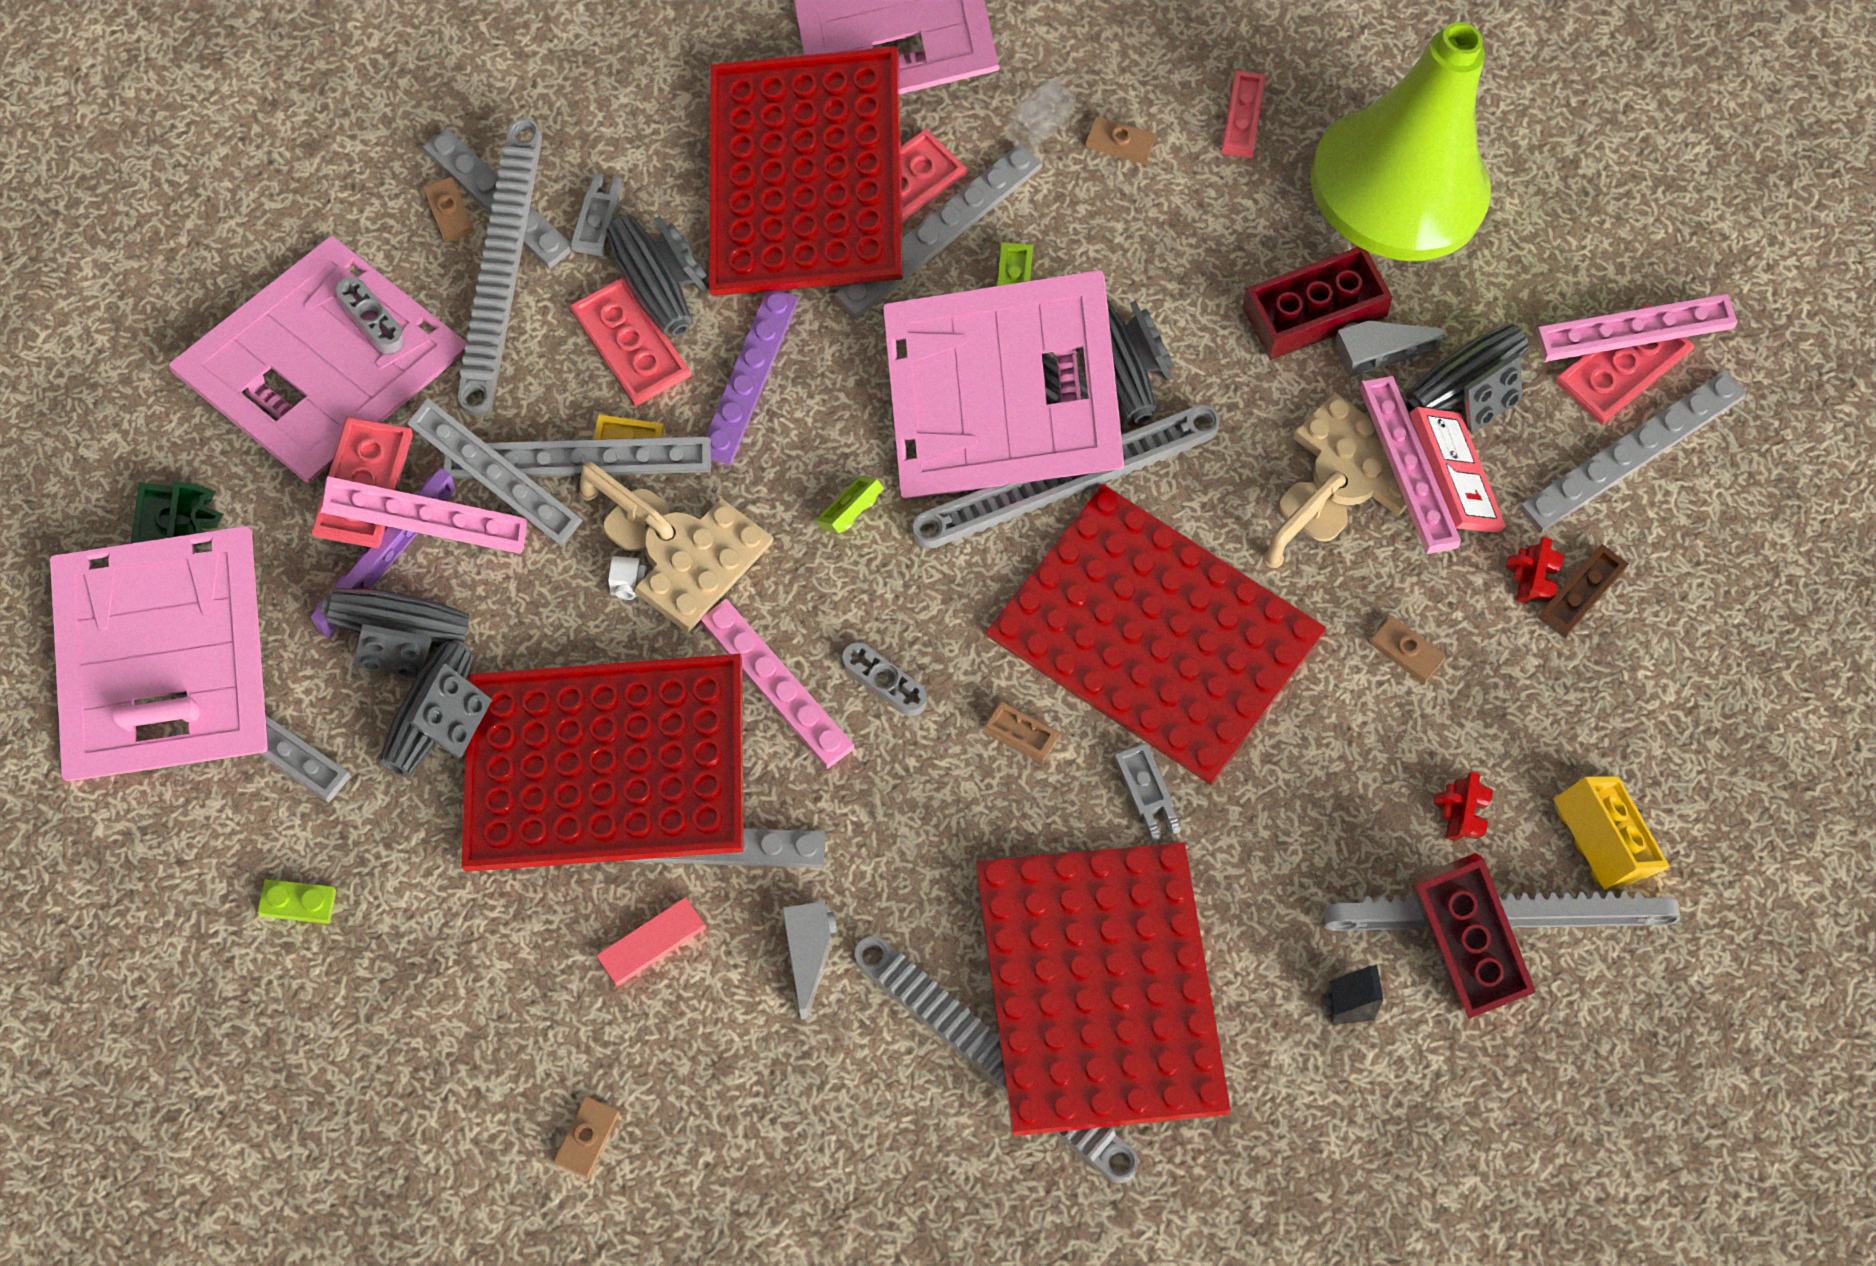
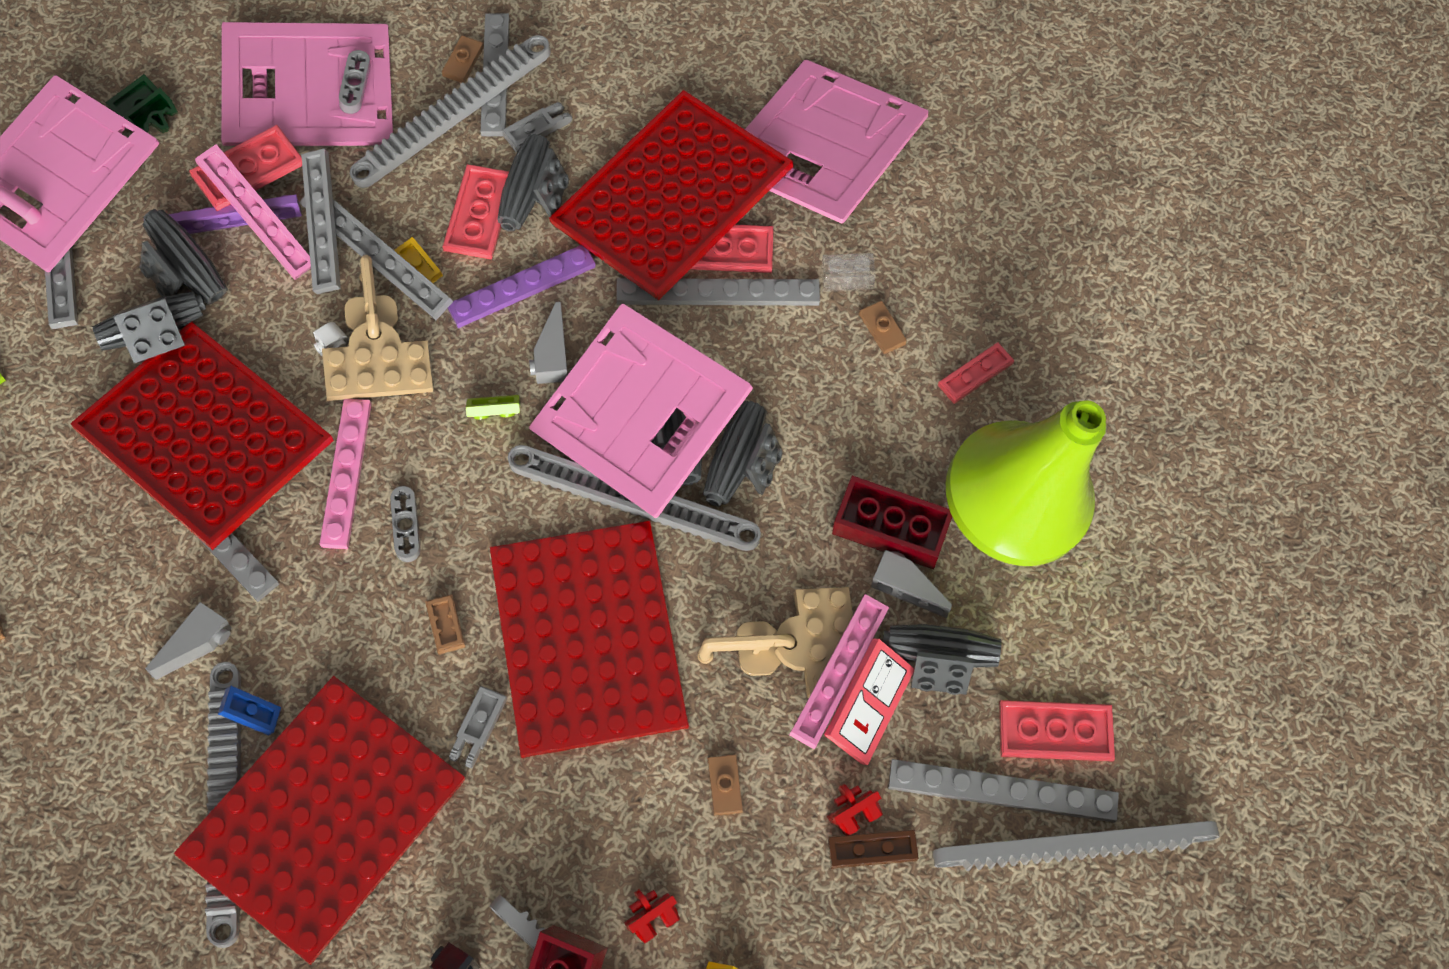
camera: 40 degrees right, 0 degrees up
(651, 941) = (123, 557): coral tile -> none
(853, 414) = (549, 352): none -> light grey slope
(935, 958) = (249, 710): none -> blue plate
(1015, 263) = (735, 350): lime plate -> none
(1636, 327) = (1084, 714): bright pink plate -> none
(1736, 444) = (1076, 845): none -> light grey gear

